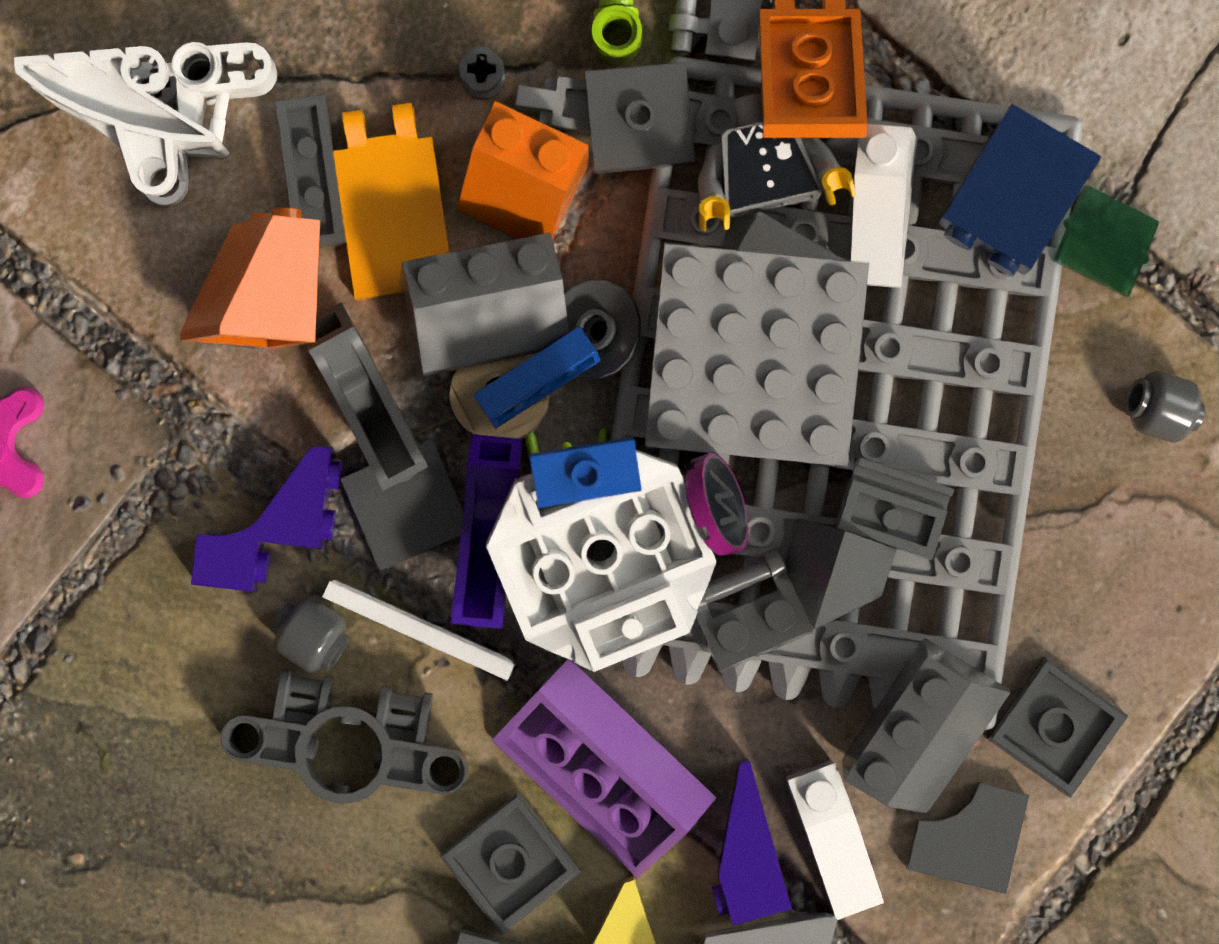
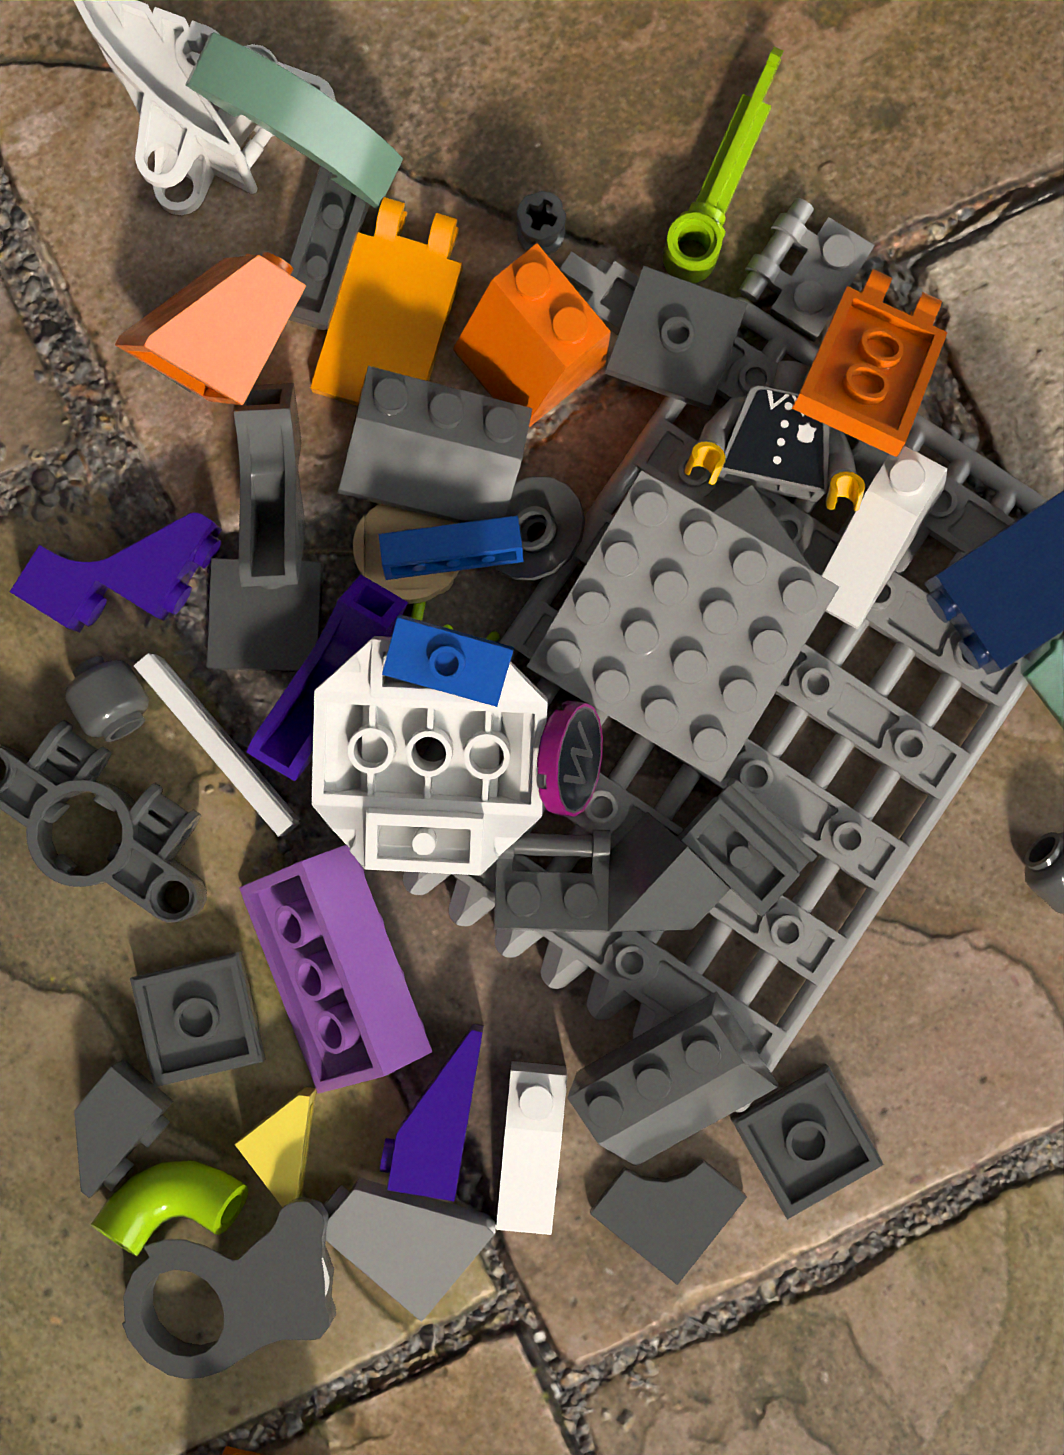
camera: 25 degrees right, 0 degrees up
(246, 86) = (297, 115): none -> sand green slope

